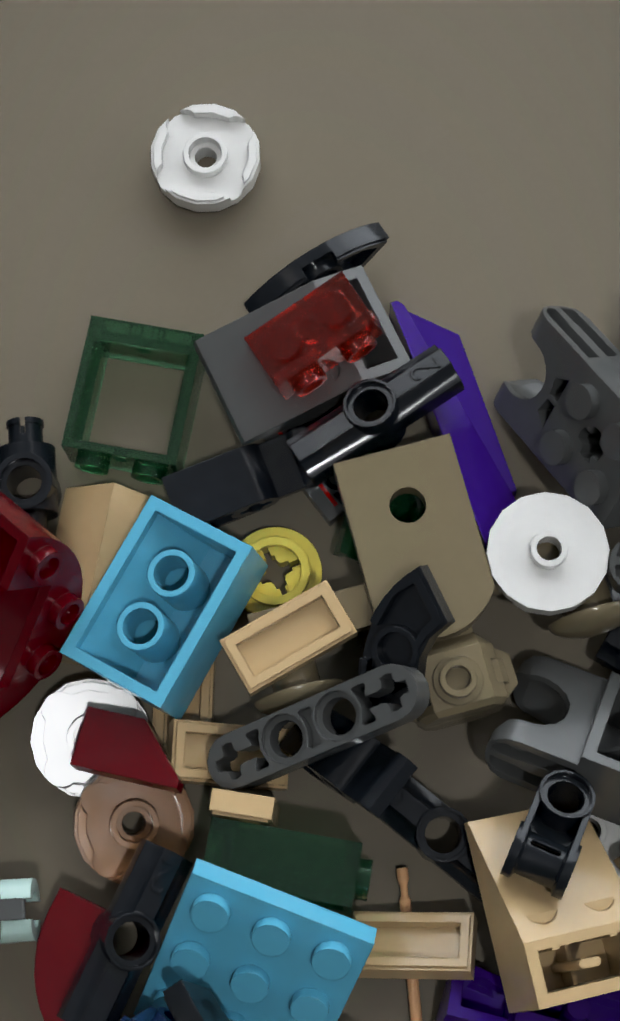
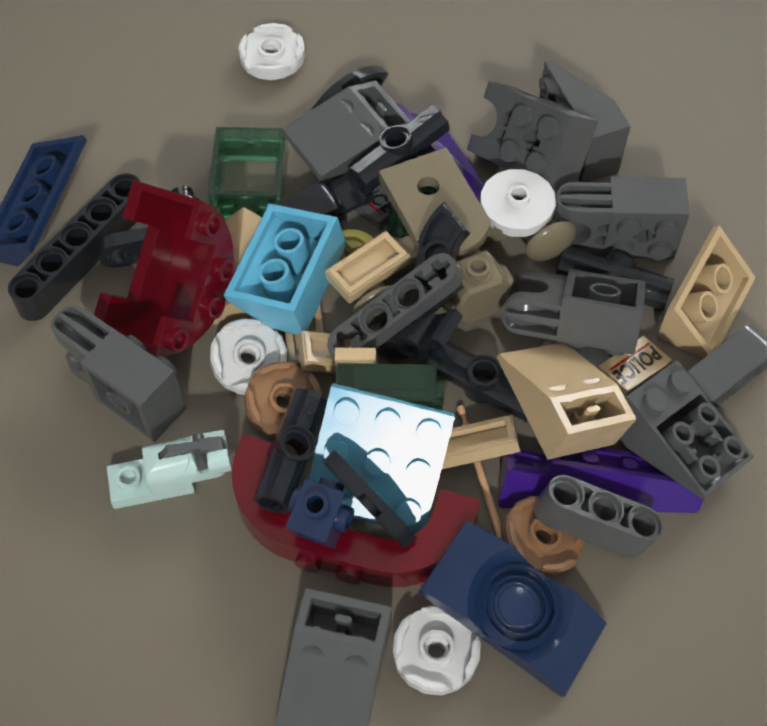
camera: 15 degrees left, 15 degrees down
(123, 750) = (273, 350): dark red tile -> none
(315, 337) = (355, 111): clear red bracket -> none
(551, 839) = (553, 342): black piece -> none

